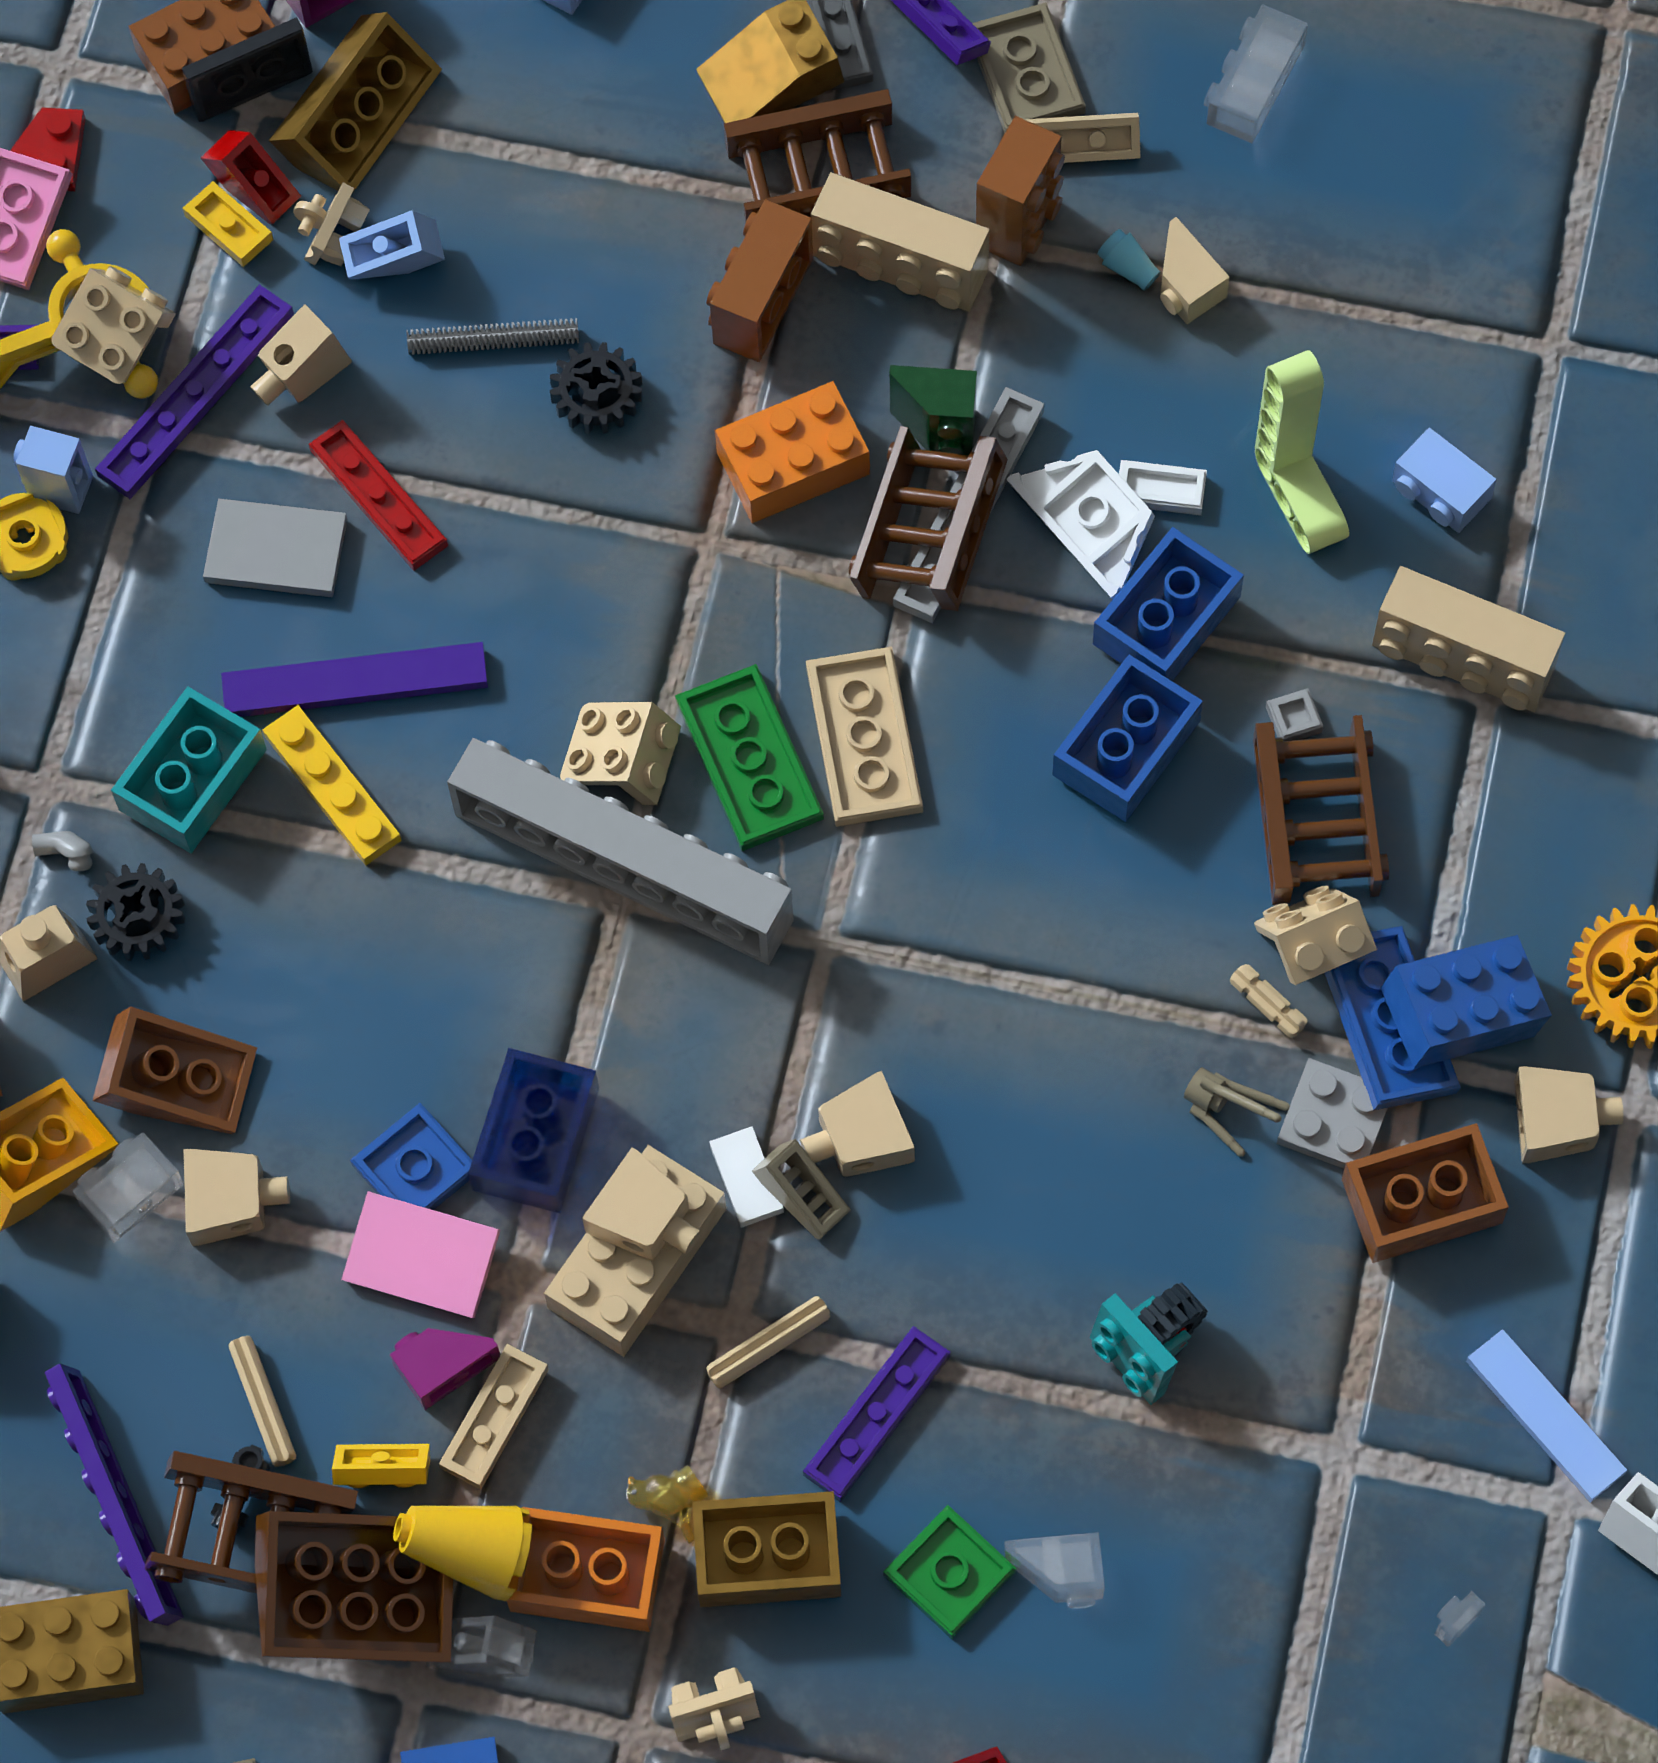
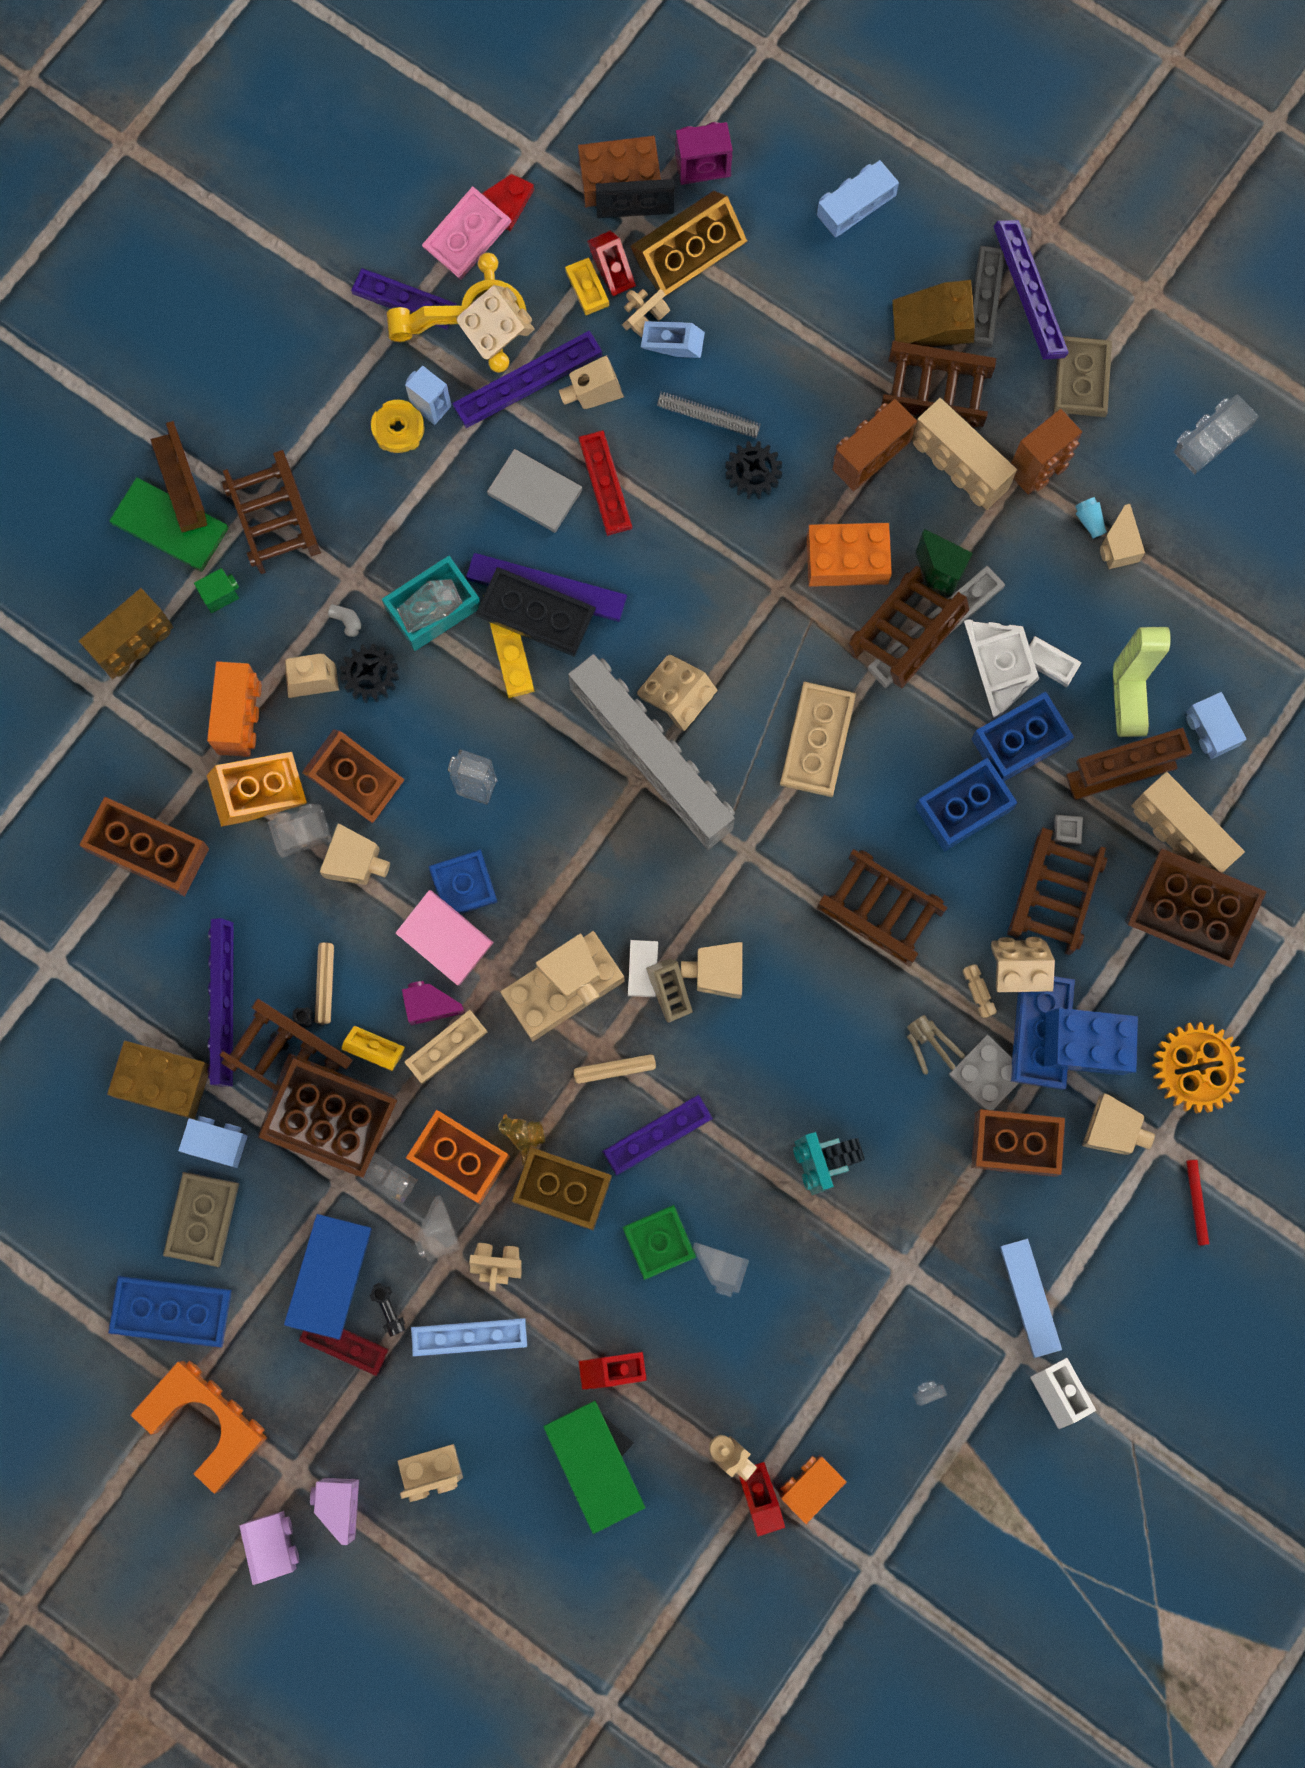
camera: 20 degrees right, 10 degrees up
(190, 766) = (429, 604): none -> clear slope
(190, 1710) = (213, 1142): none -> light blue brick
(354, 719) = (535, 611): none -> black tile
(364, 992) = (472, 776): none -> clear brick
(468, 1543) = (397, 1120): yellow cone -> none
(534, 1130) = (535, 893): clear blue brick -> none
(603, 1699) = (437, 1232): none -> clear slope
(749, 757) = (747, 724): green tile -> none
(1083, 979) = (880, 934): none -> reddish brown fence
(1096, 136) = (1102, 433): tan plate -> none
(1339, 580) = (1128, 763): none -> reddish brown fence
(1530, 744) = (1195, 907): none -> reddish brown slope

